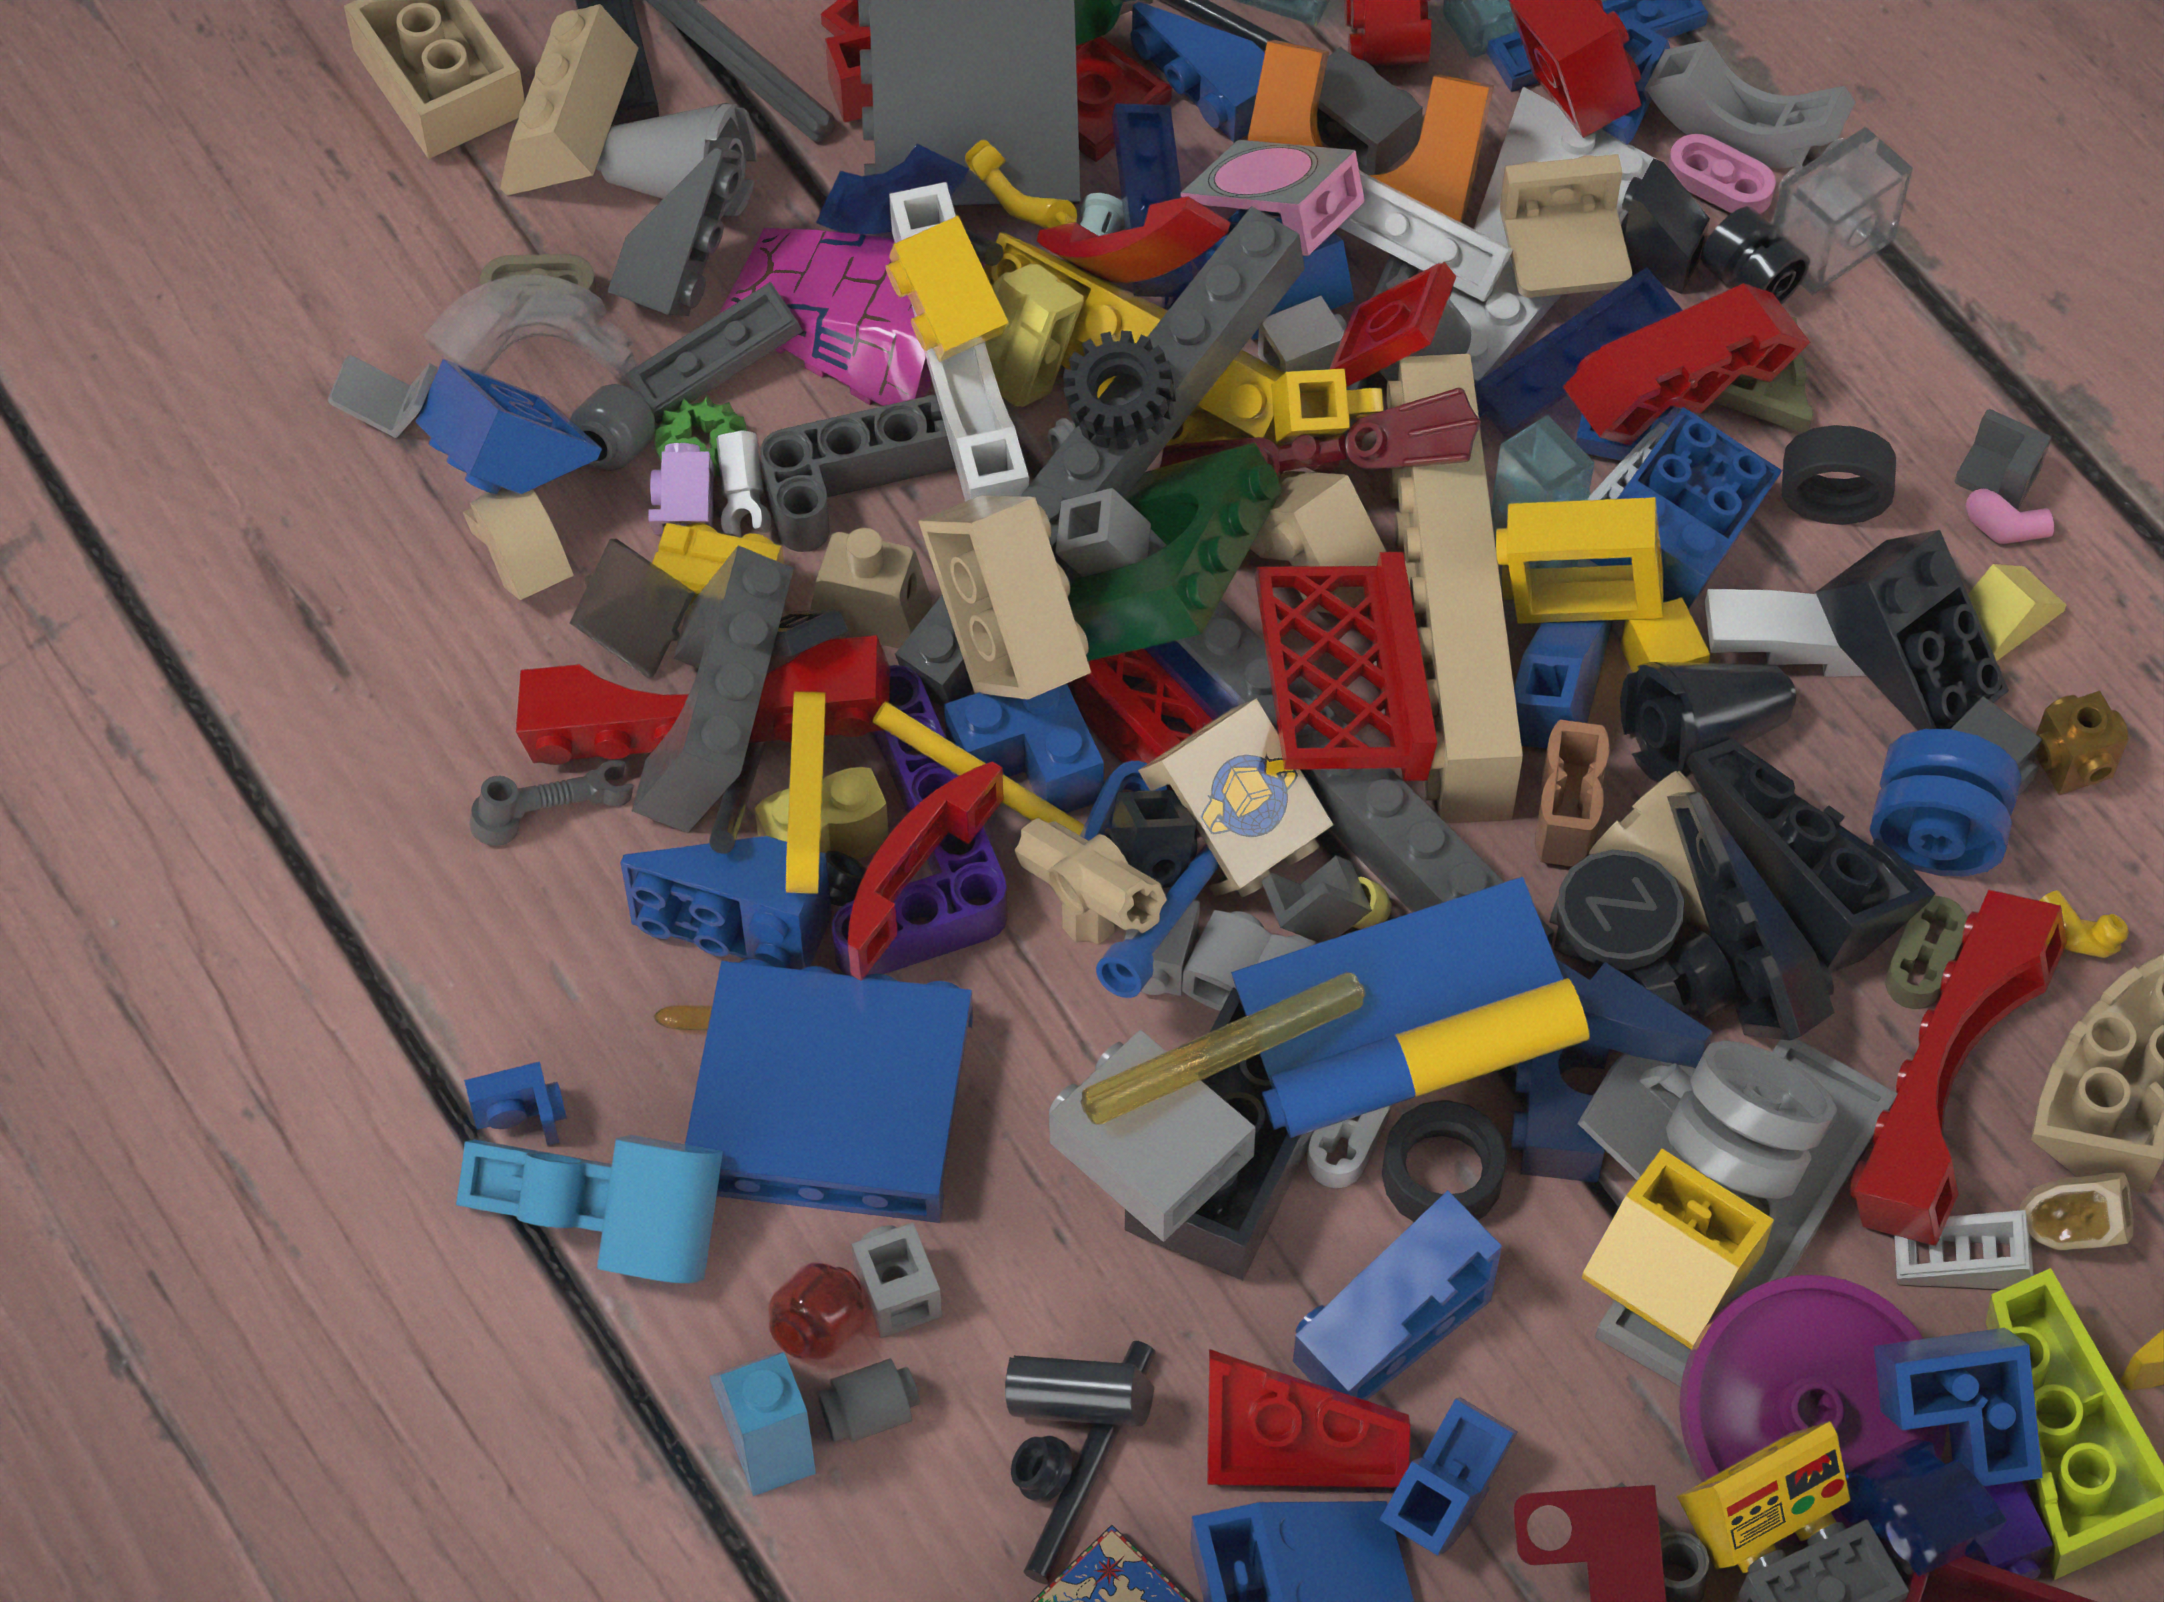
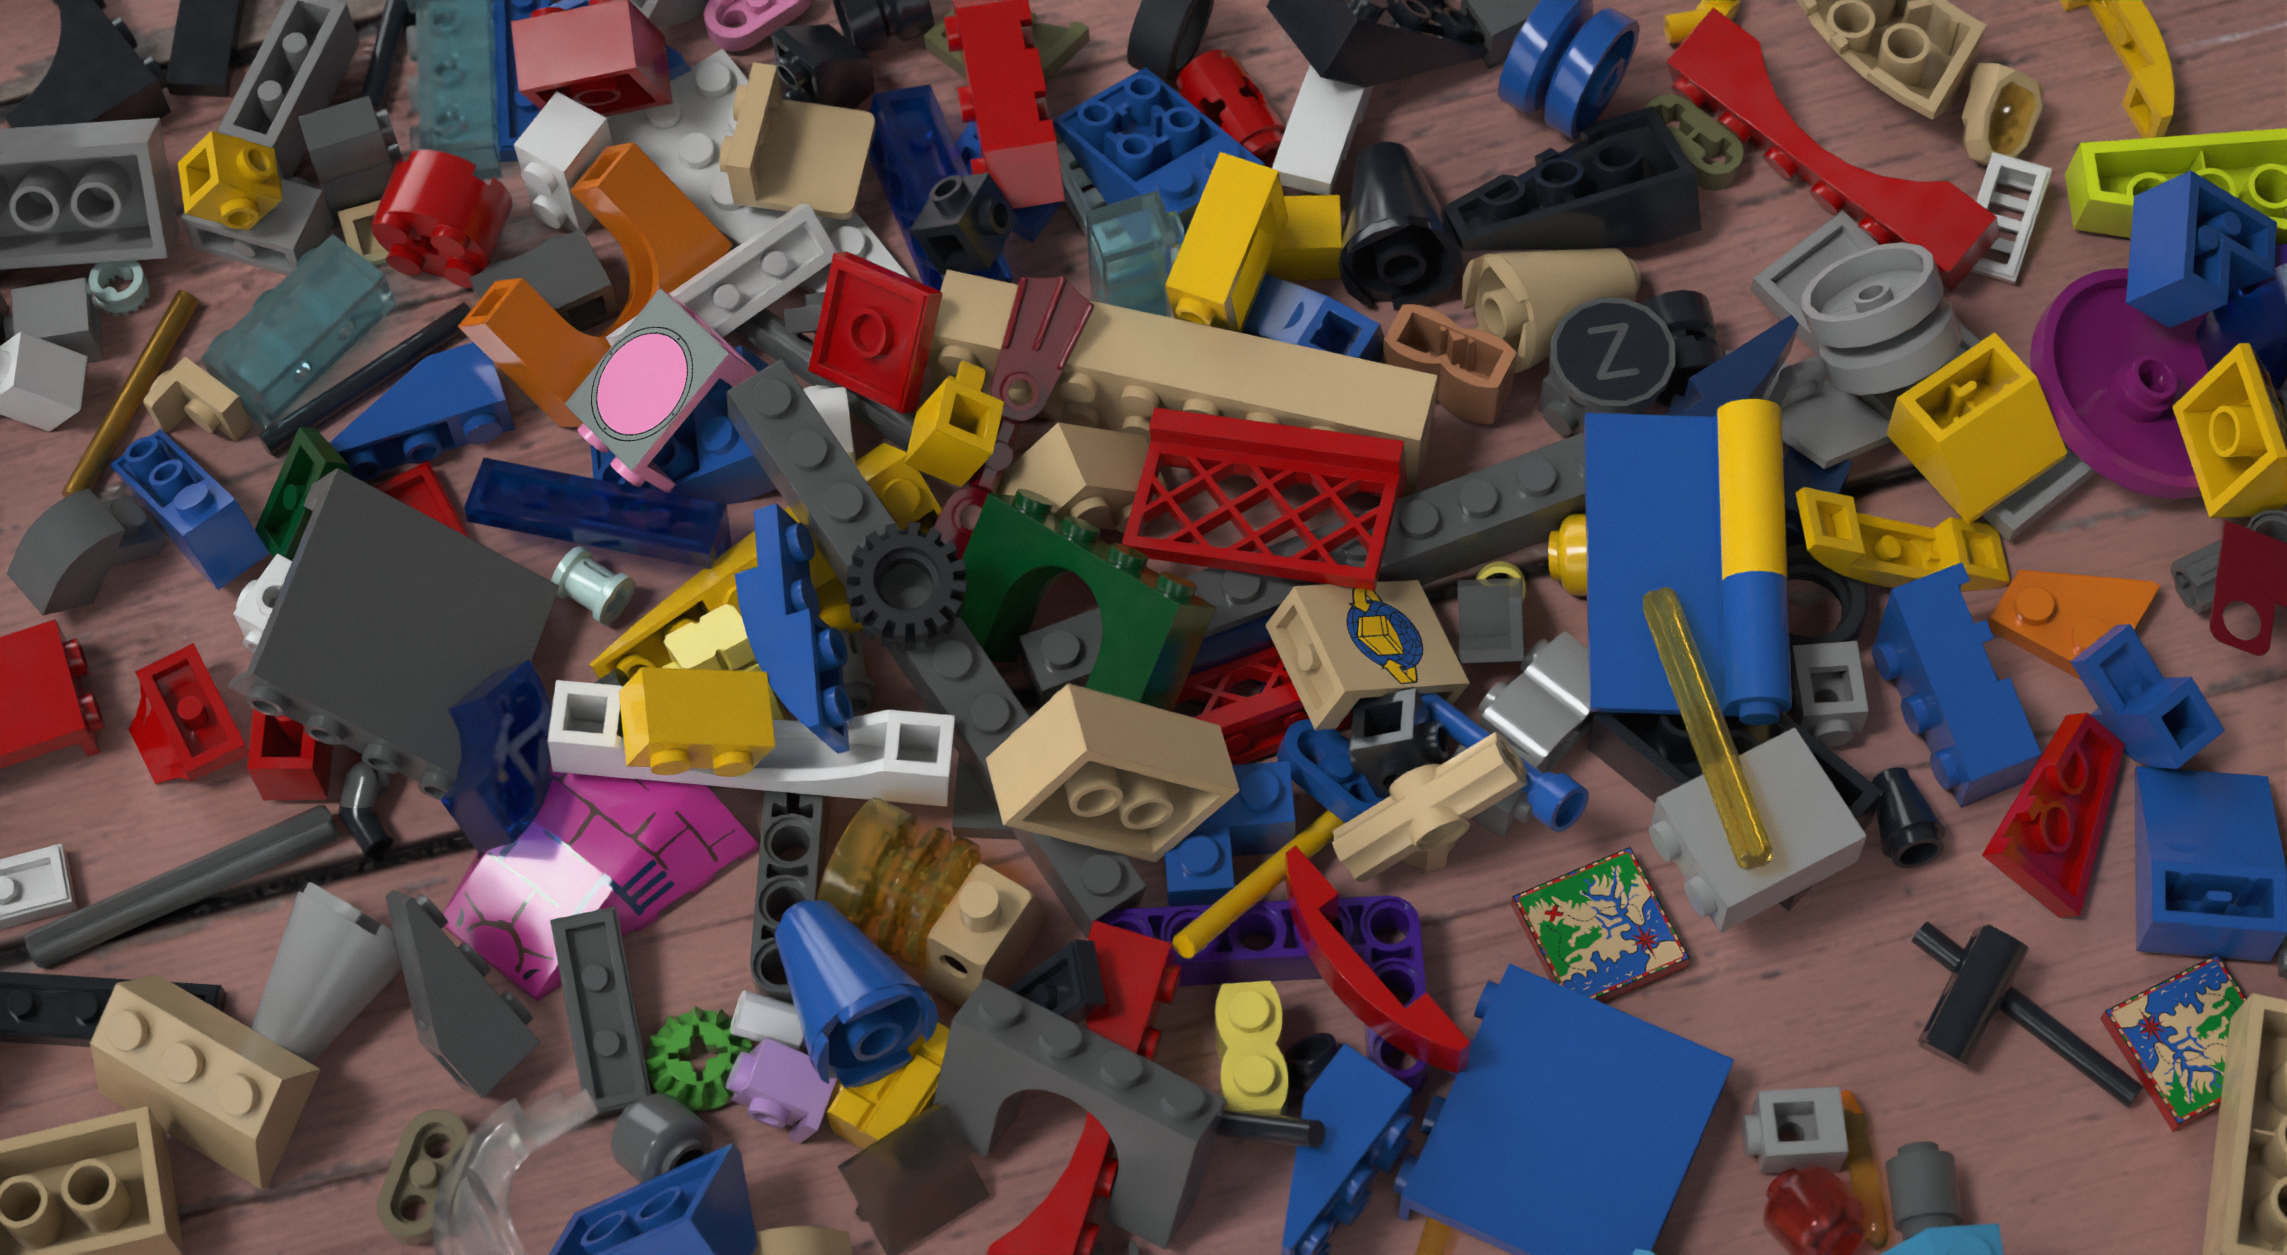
camera: 70 degrees left, 5 degrees up
(754, 486) = (850, 996): none -> blue cone
(805, 793) = (1277, 1037): yellow beam -> none
(835, 148) = (357, 808): none -> arm
(887, 487) = (892, 880): none -> clear yellow wheel
(924, 1333) = (1864, 1172): none -> clear yellow piece
(1030, 1067) = (1601, 928): none -> tile
(1036, 347) = (787, 634): none -> blue slope
(1042, 1467) = (2033, 1071): black plate -> none
(1044, 212) = (561, 624): yellow piece -> none
(1101, 533) = (1049, 662): light grey brick -> none
(1170, 238) = (717, 484): red slope -> none
(1250, 1303) = (1906, 821): none -> black cone
(1362, 1183) = (1833, 675): none -> light grey brick
(1488, 55) = (555, 156): none -> white brick
(1525, 1214) = (1897, 551): none -> yellow slope
(1528, 357) = (964, 223): none -> black brick
(1536, 1396) = (2066, 613): none -> orange wing
(1775, 549) = (1231, 99): none -> red piece
(1775, 969) = (1667, 255): black wedge -> none

